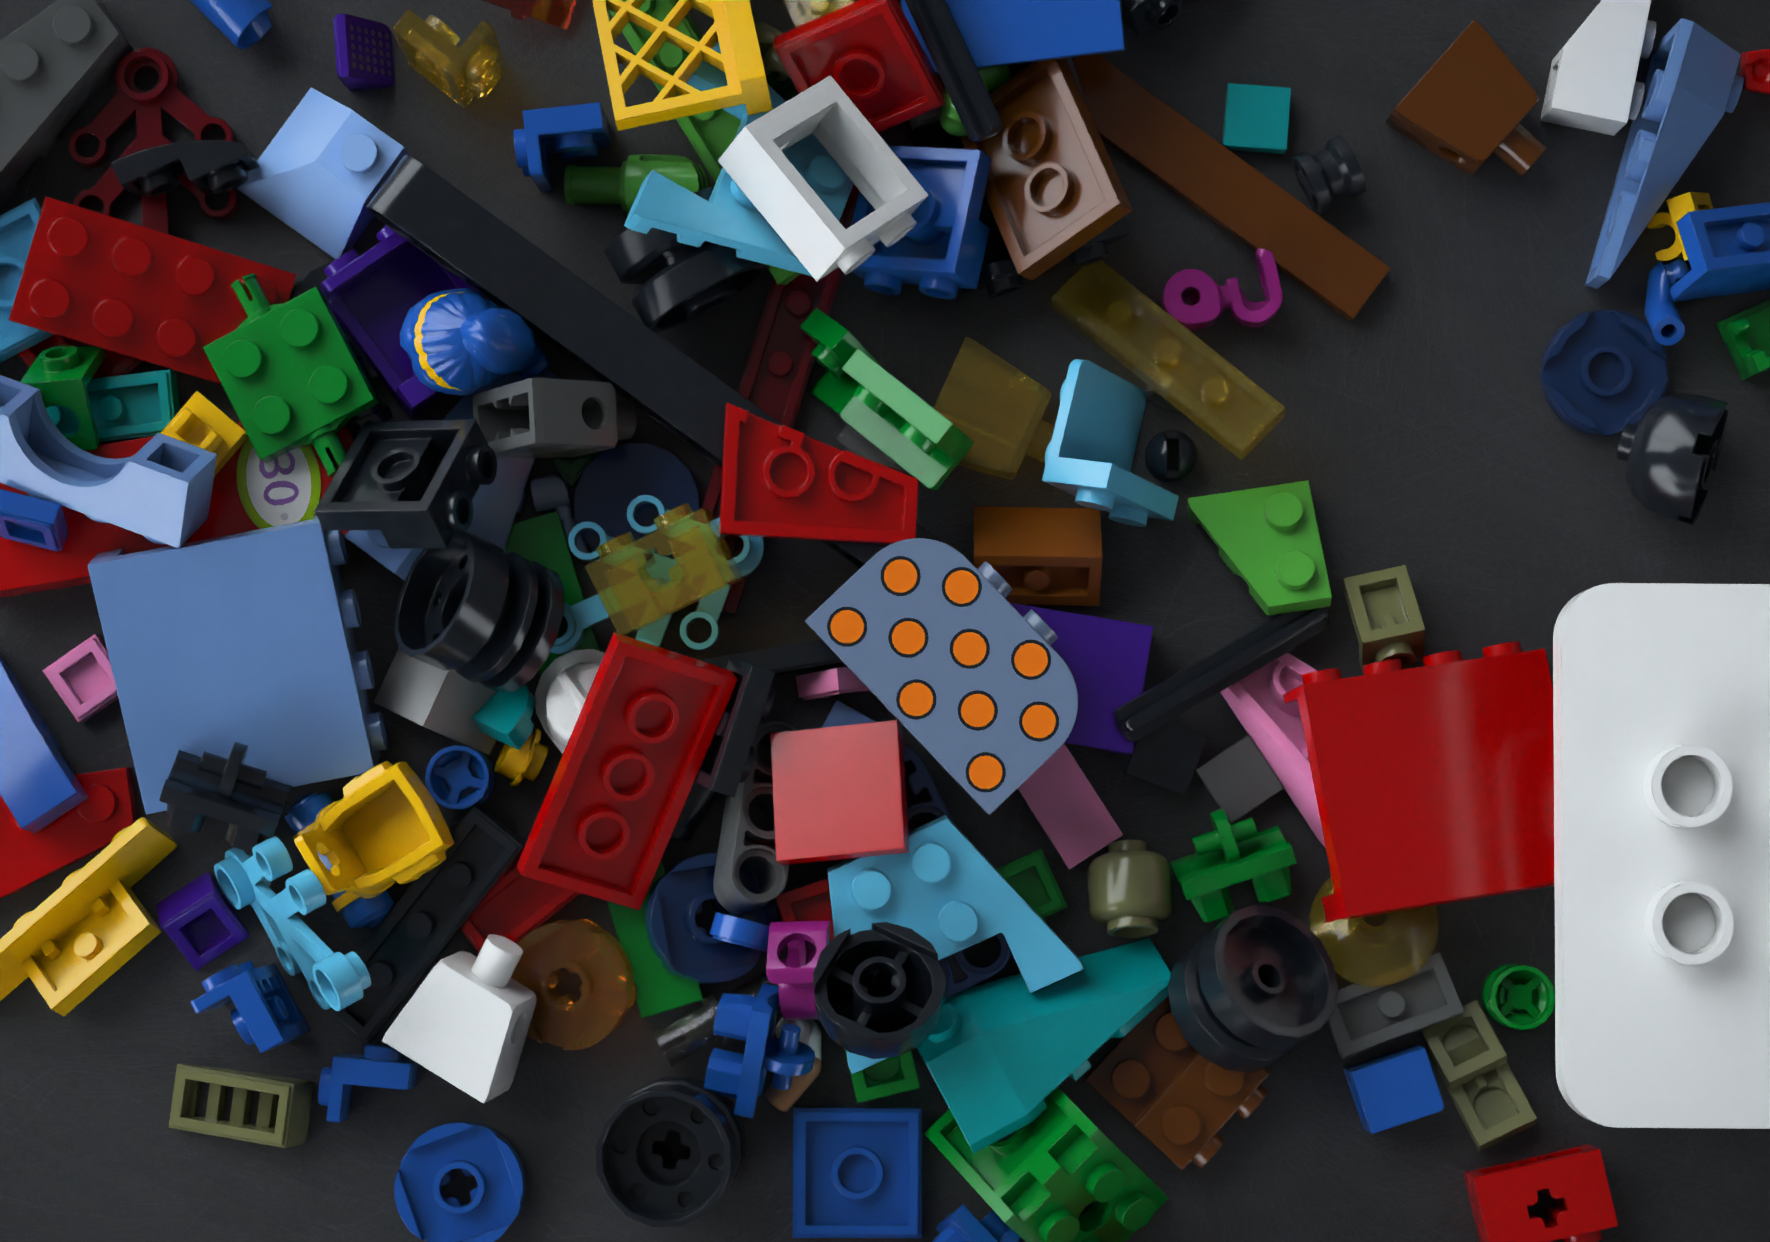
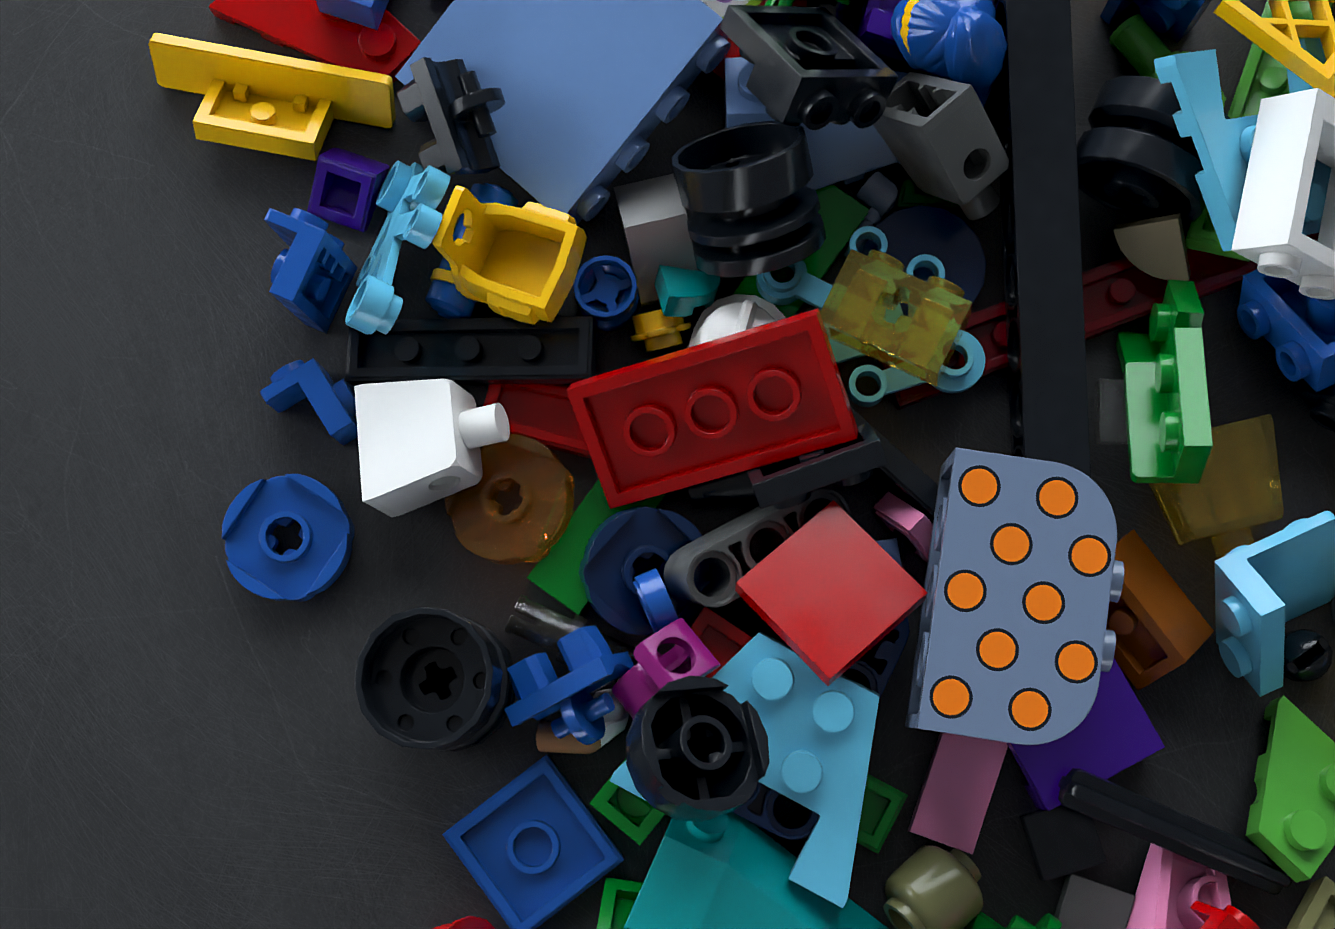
camera: 60 degrees right, 5 degrees down
(279, 1096) = (245, 358): olive slope -> none
(766, 313) = (1156, 246): none -> dark tan tile
(805, 489) = (1051, 377): red wing -> none

